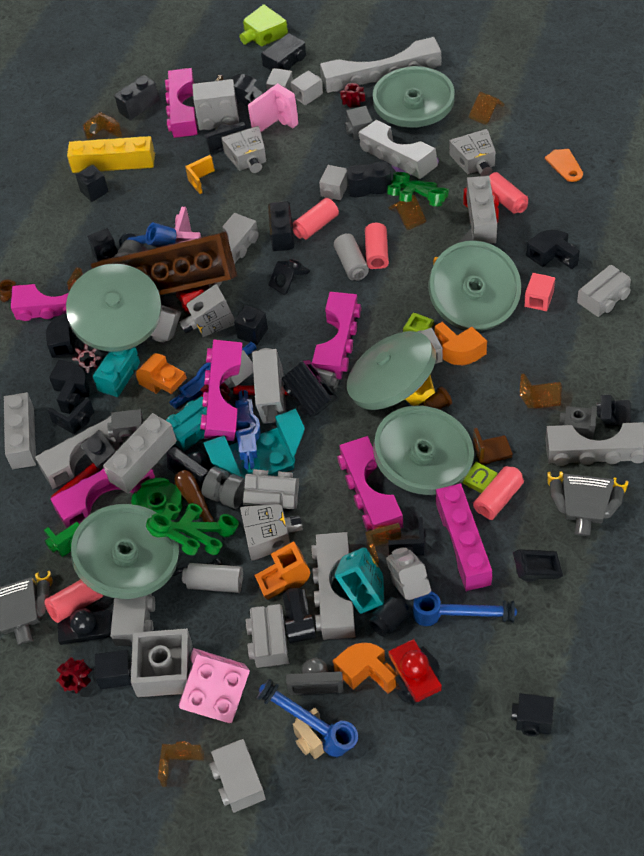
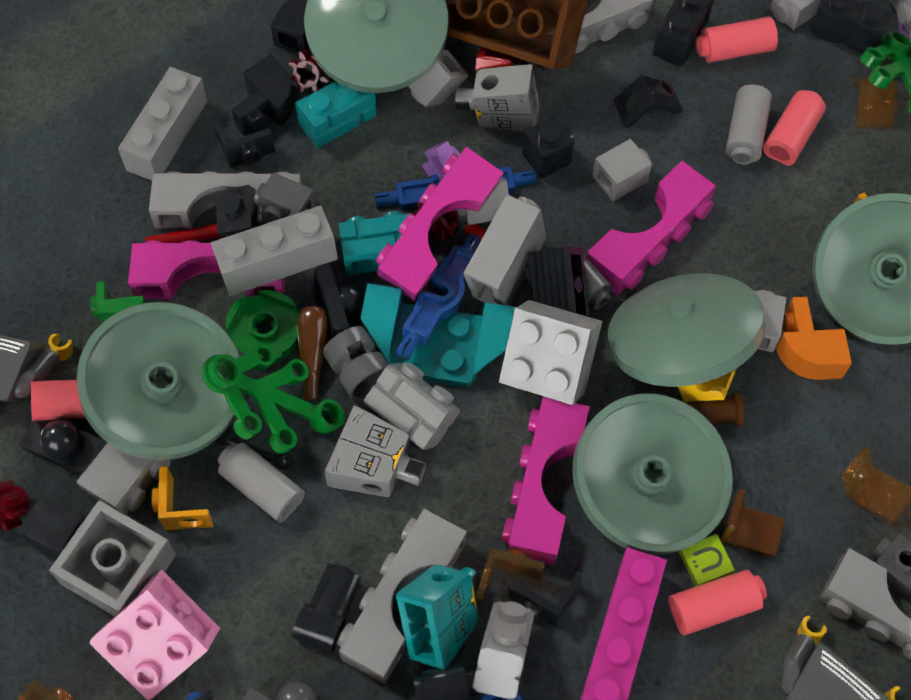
camera: 25 degrees right, 10 degrees up
(158, 375) = (382, 151): orange brick -> none
(166, 618) = (163, 504): none -> light orange bracket
(197, 362) = (437, 158): none -> medium lavender plate
(268, 636) = (270, 611): light grey brick -> none
(287, 572) = (351, 534): orange brick -> none
(299, 315) = (622, 169): none -> light grey brick
(328, 420) = (550, 351): none -> brick
(417, 323) = (775, 277): lime tile -> none

